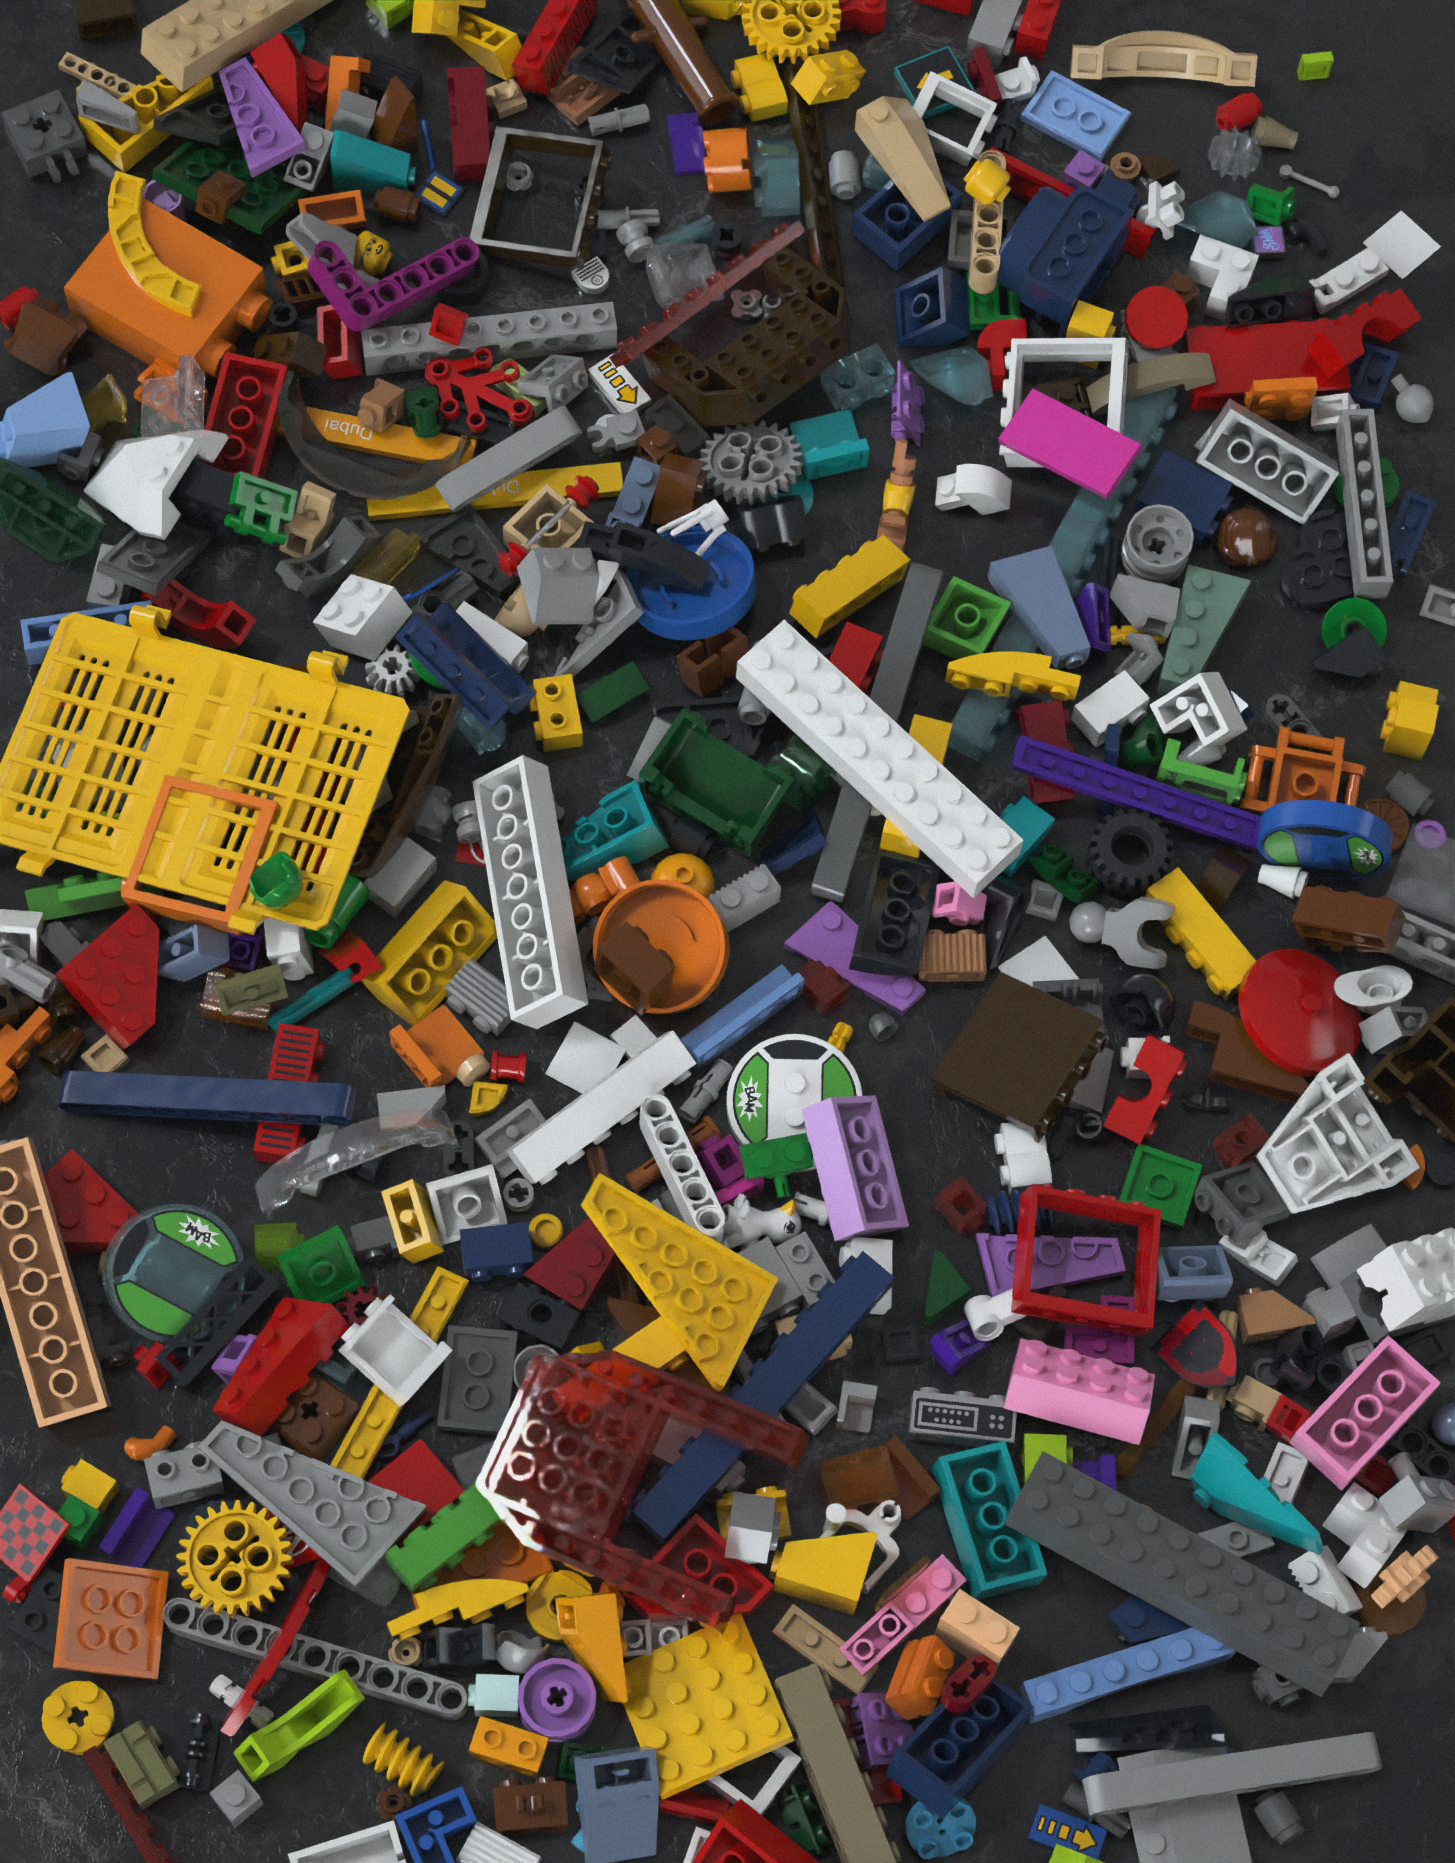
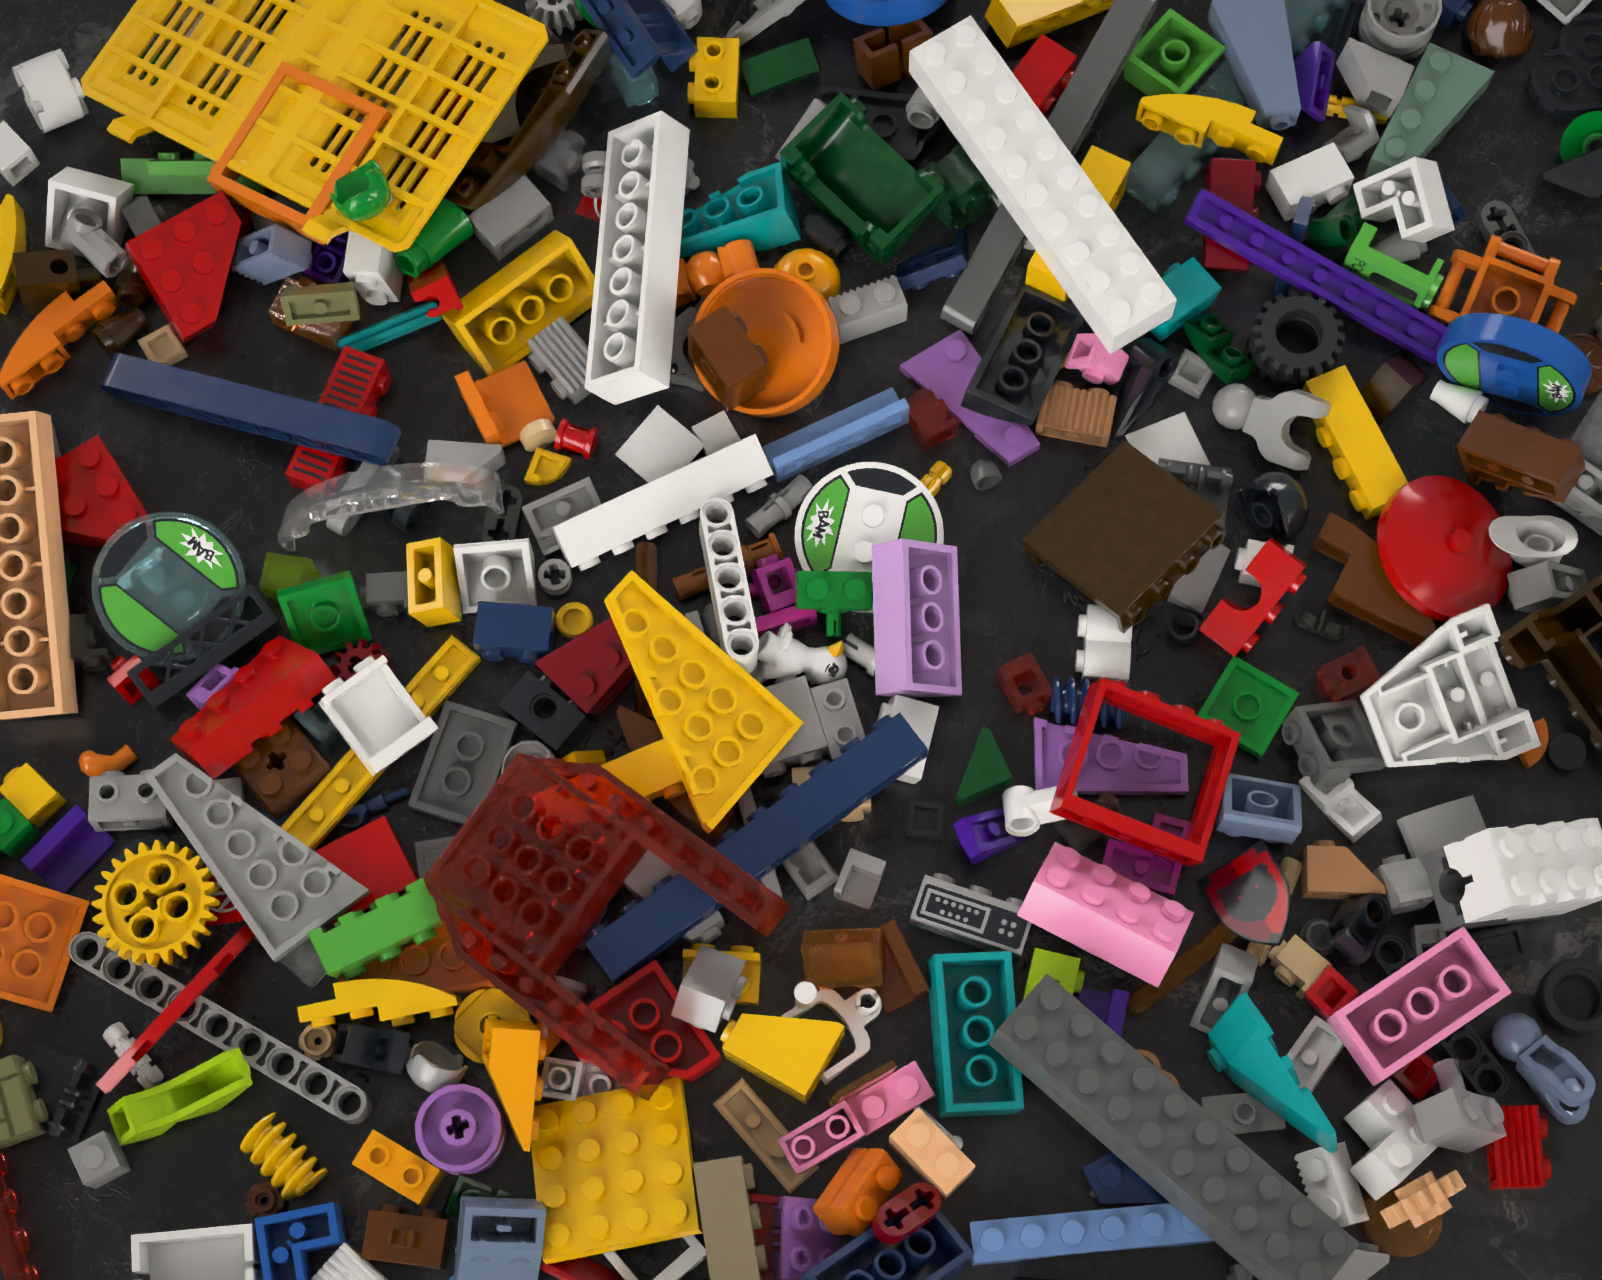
camera: 20 degrees right, 5 degrees up
(494, 1695) = (395, 1107): light aqua brick -> none

